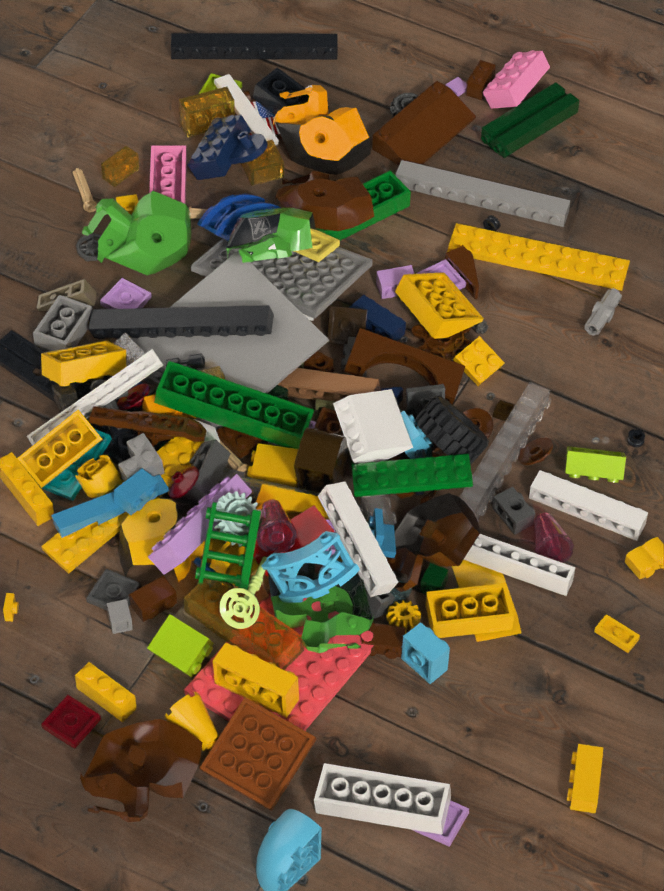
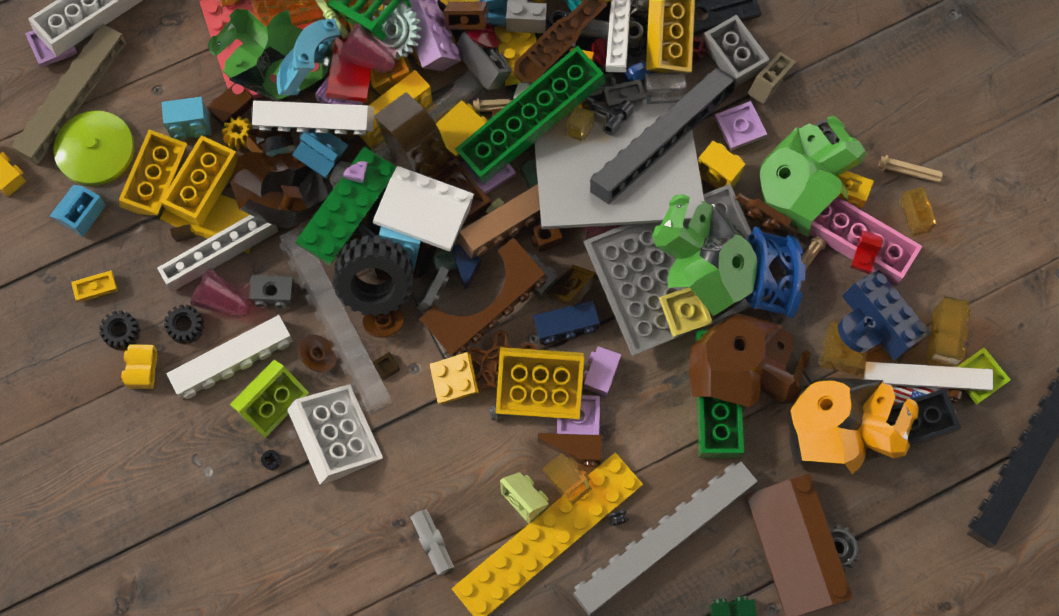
camera: 125 degrees right, 20 degrees up
(177, 281) = (719, 166): none -> yellow brick
(180, 169) = (866, 252): none -> red slope
(180, 487) = (466, 15): none -> reddish brown brick
(198, 237) = (765, 214): none -> reddish brown plate
(382, 476) = (356, 172): none -> lavender tile
(480, 766) = (69, 94): none -> dark tan brick
(492, 257) = (567, 478): none -> clear yellow brick
(493, 649) = (152, 174): none -> yellow slope
(504, 720) = (94, 148): none -> lime dish
(521, 599) = (182, 232): none -> dark brown tile
(527, 271) = (523, 496): none -> yellowish green slope
(568, 685) = (78, 209): none -> dark azure slope
(584, 408) = (334, 433): none -> white slope
(586, 561) = (175, 316): none -> black tyre
(630, 601) = (111, 322): none -> black tyre

